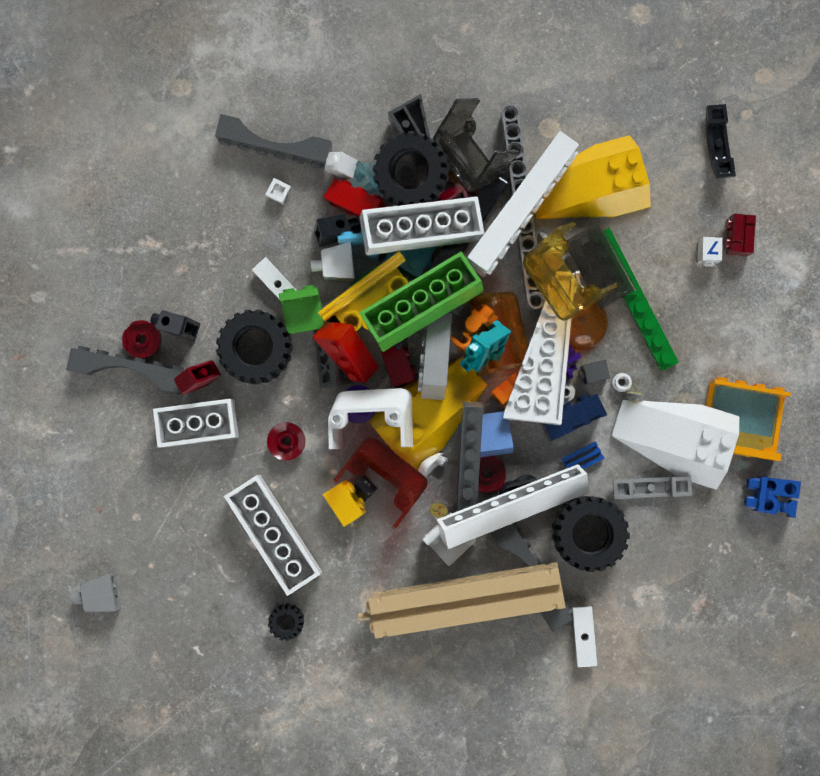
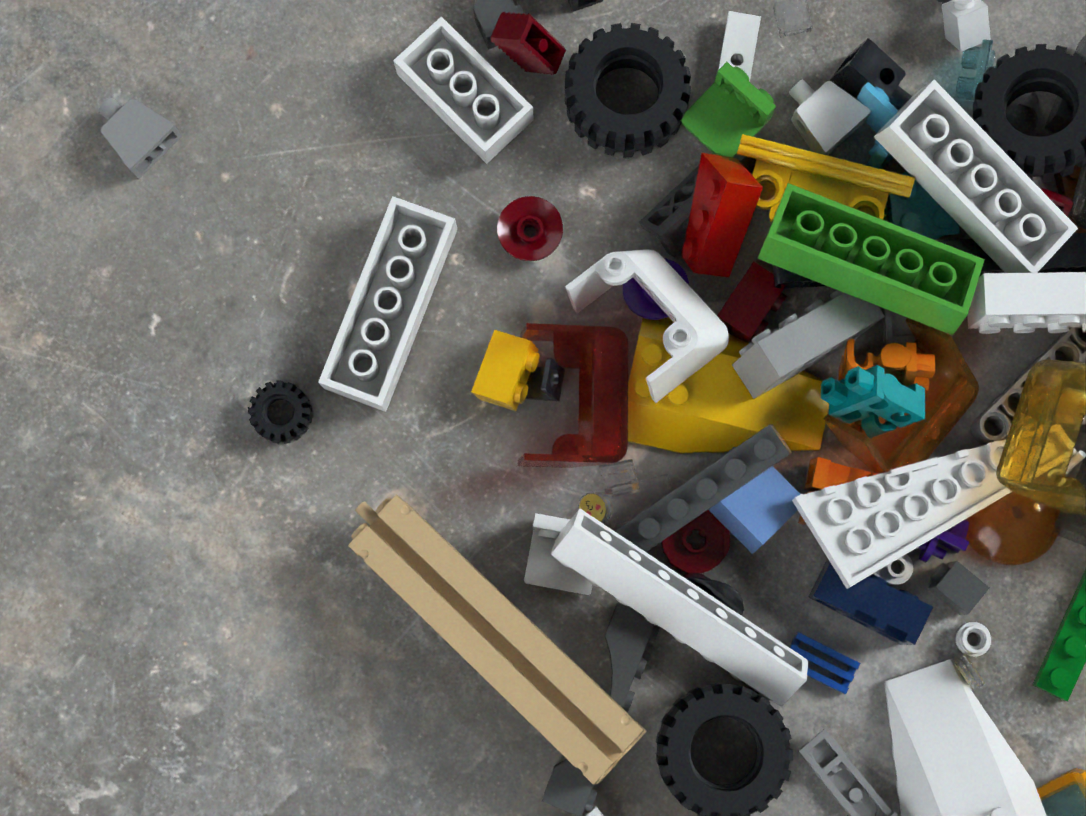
camera: 60 degrees right, 5 degrees down
(351, 199) = (928, 56): red wedge -> none
(432, 462) = (652, 451): white arm -> none

